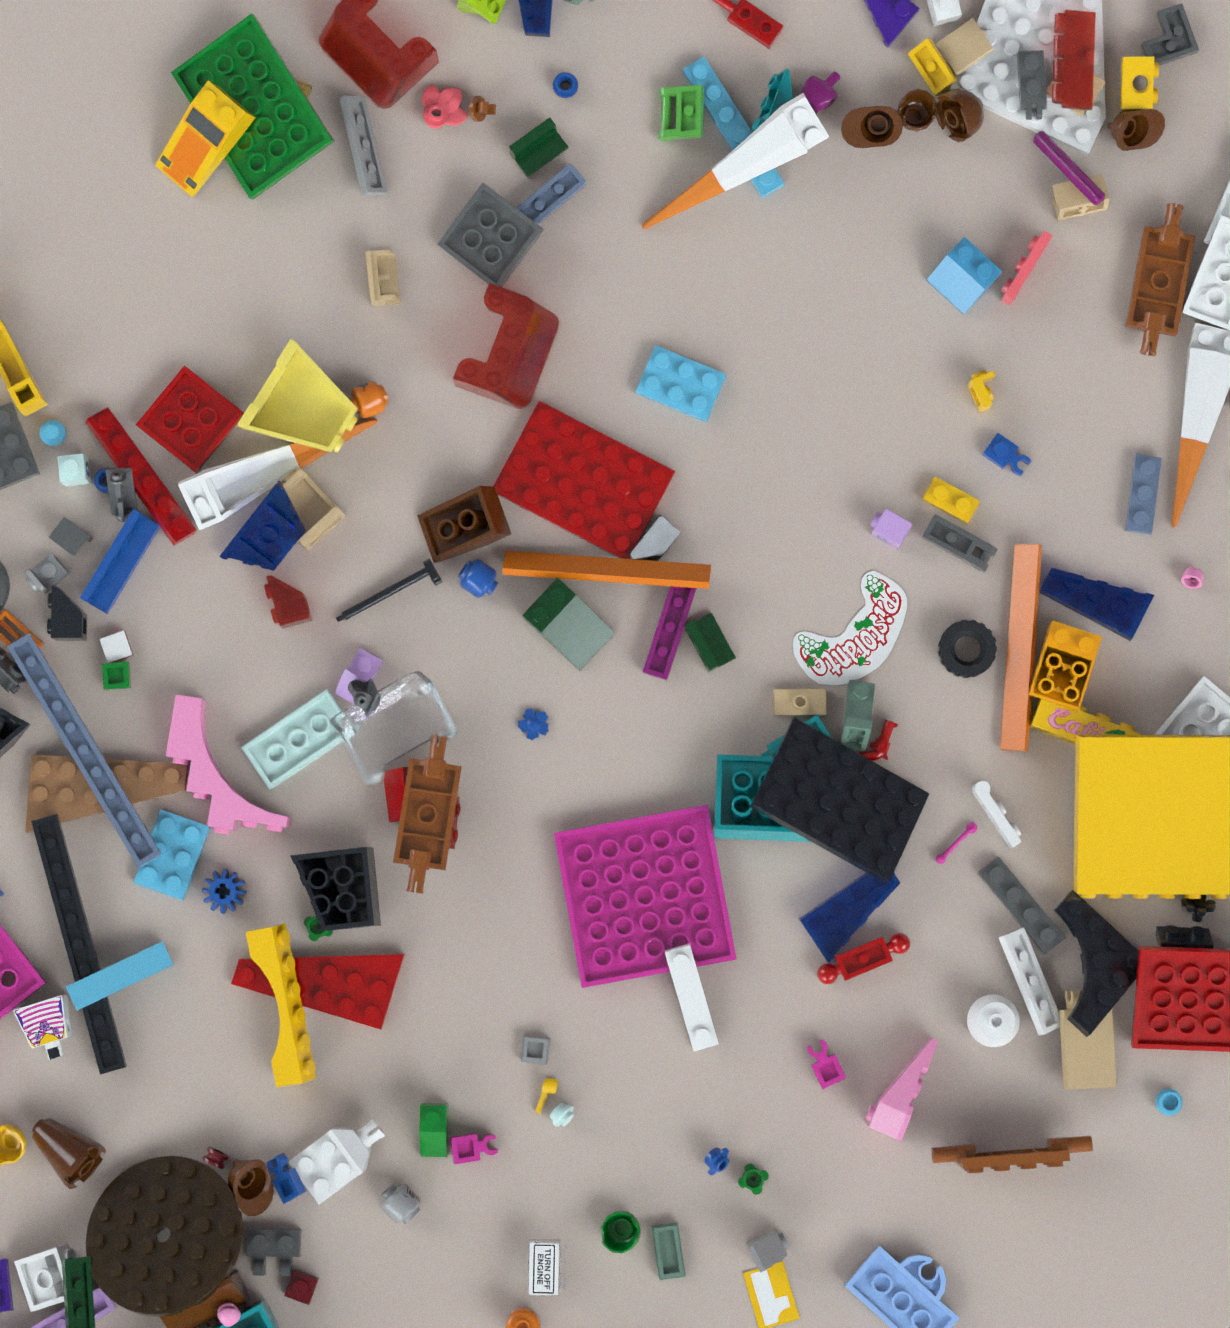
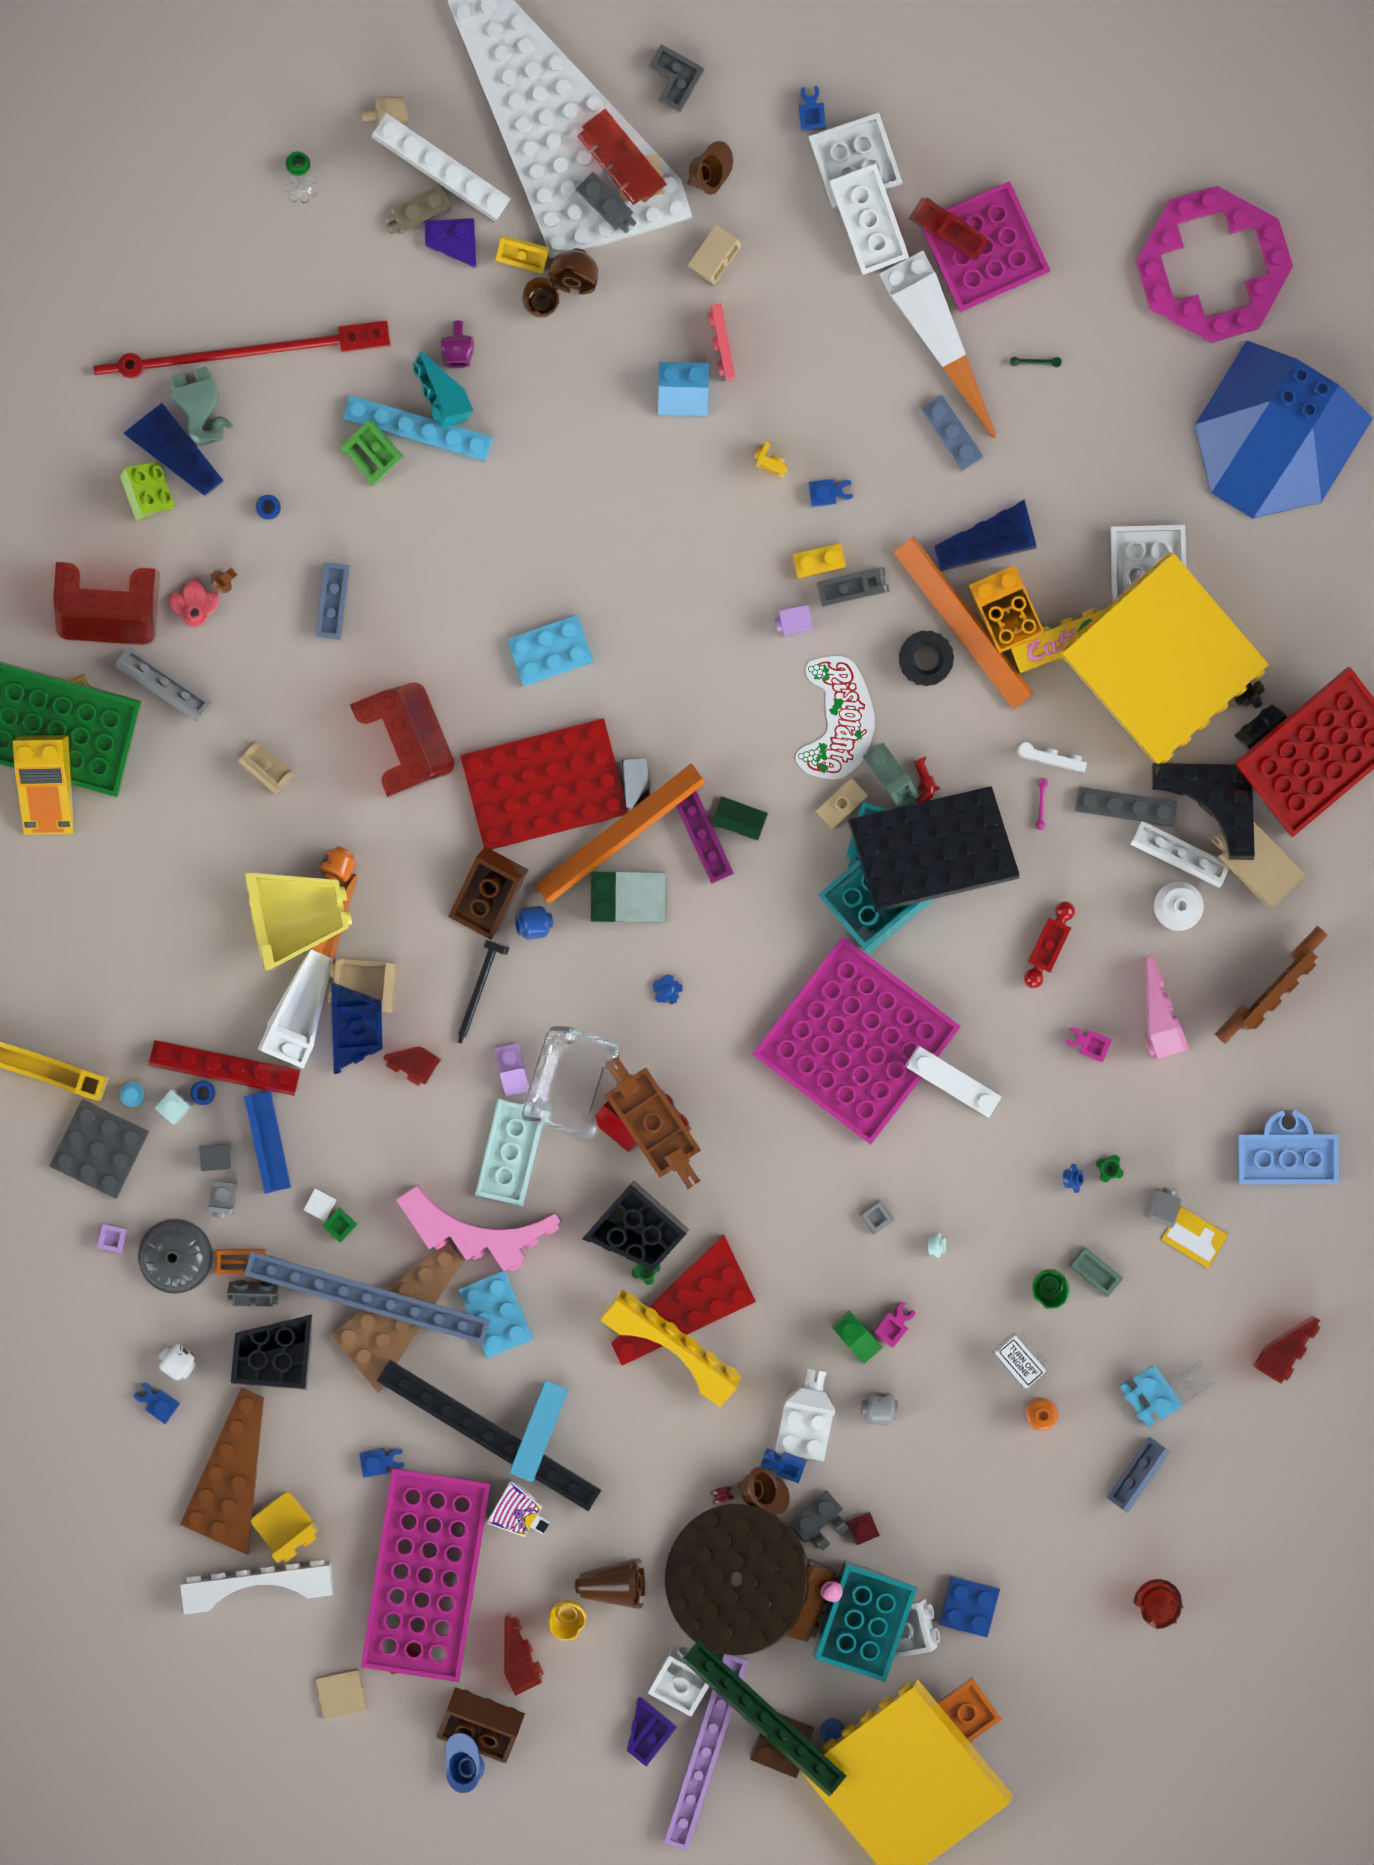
camera: 45 degrees left, 5 degrees up
(67, 619) = (266, 1215): black slope -> none
(121, 492) = (223, 1092): dark grey hinge -> none
(190, 419) = (222, 995): red plate -> none
(230, 884) = (557, 1314): blue gear -> none
(364, 695) = (533, 1079): dark grey hinge -> none
(490, 236) = (317, 668): dark grey plate -> none
(538, 147) = (291, 571): dark green panel -> none
(549, 1086) = (910, 1233): yellow hand -> none
(776, 141) = (462, 411): white plate -> none
(844, 912) = (1006, 925): clear blue wing -> none
(872, 127) = (519, 339): reddish brown piece -> none
(965, 46) = (532, 218): tan piece -> none
(1069, 168) = (688, 242): magenta axle -> none
(1129, 96) = (669, 125): yellow brick -> none
(1160, 280) = (827, 265): dark orange plate -> none
(1168, 1101) = (1351, 851): medium azure plate -> none
(1190, 582) = (1040, 462): bright pink hinge -> none

